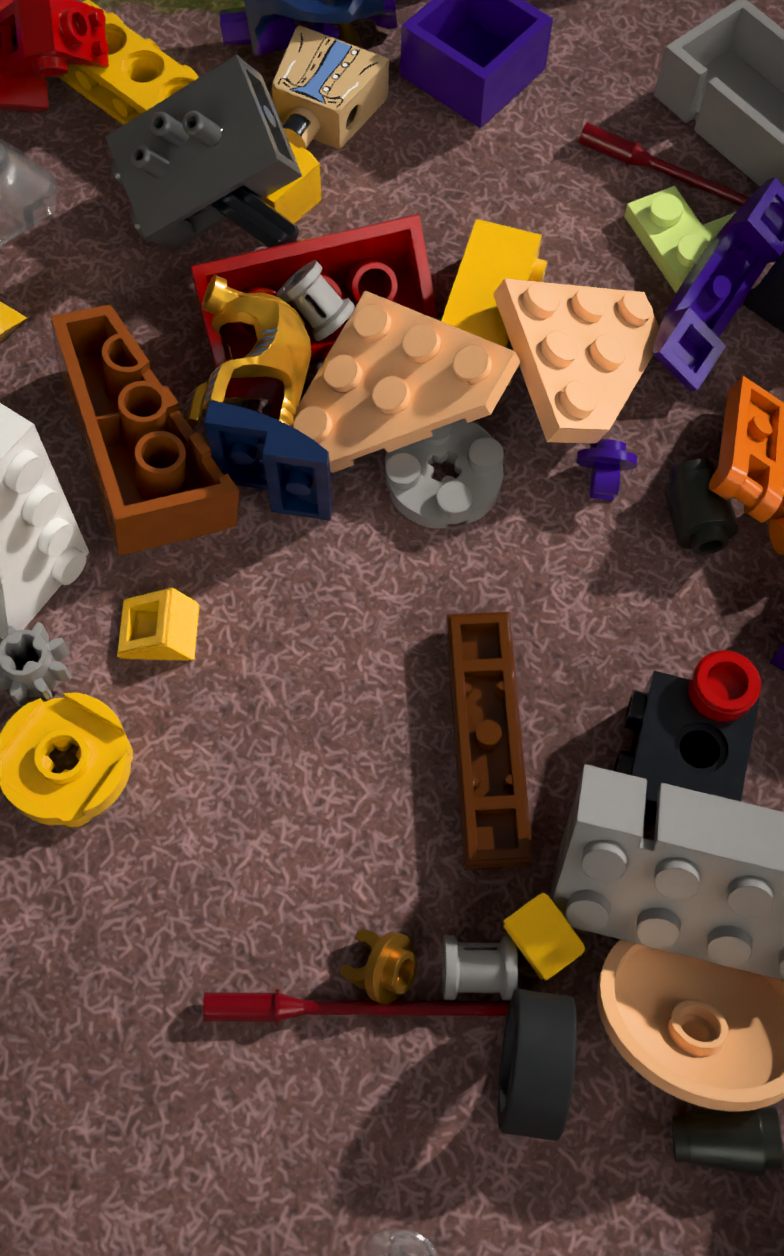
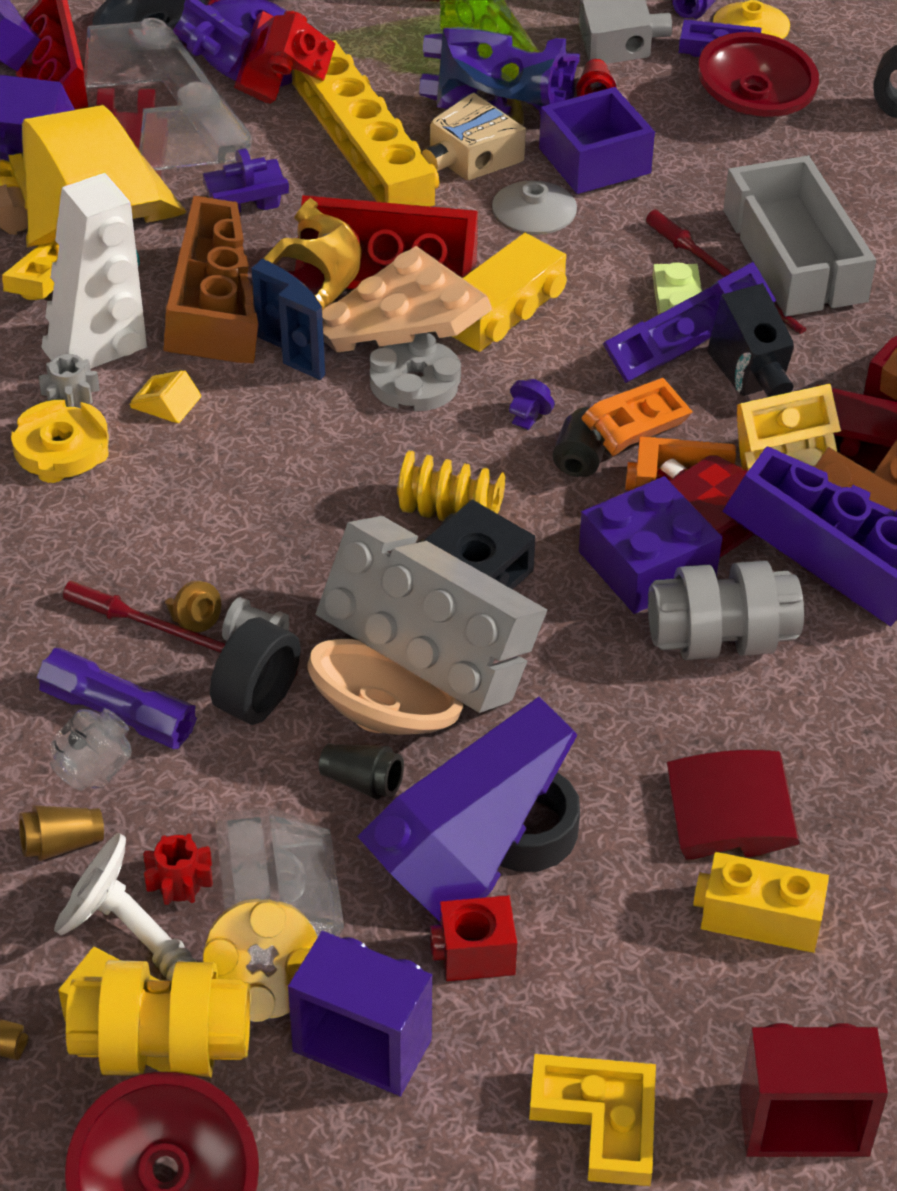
camera: 25 degrees right, 20 degrees down
(89, 257) = (248, 181): none -> dark purple hips
(207, 160) = (353, 143): dark grey piece -> none
(316, 300) = (377, 241): light grey bush -> none
(373, 1169) = (147, 711): none -> dark purple axle
(438, 163) = (534, 207): none -> light grey dish
(488, 742) = (354, 497): reddish brown plate -> none
(544, 936) = (304, 616): yellow slope -> none
(577, 352) = (547, 325): light nougat plate -> none
(596, 647) = (444, 491): none -> yellow piece
(724, 686) = (511, 517): red tile -> none

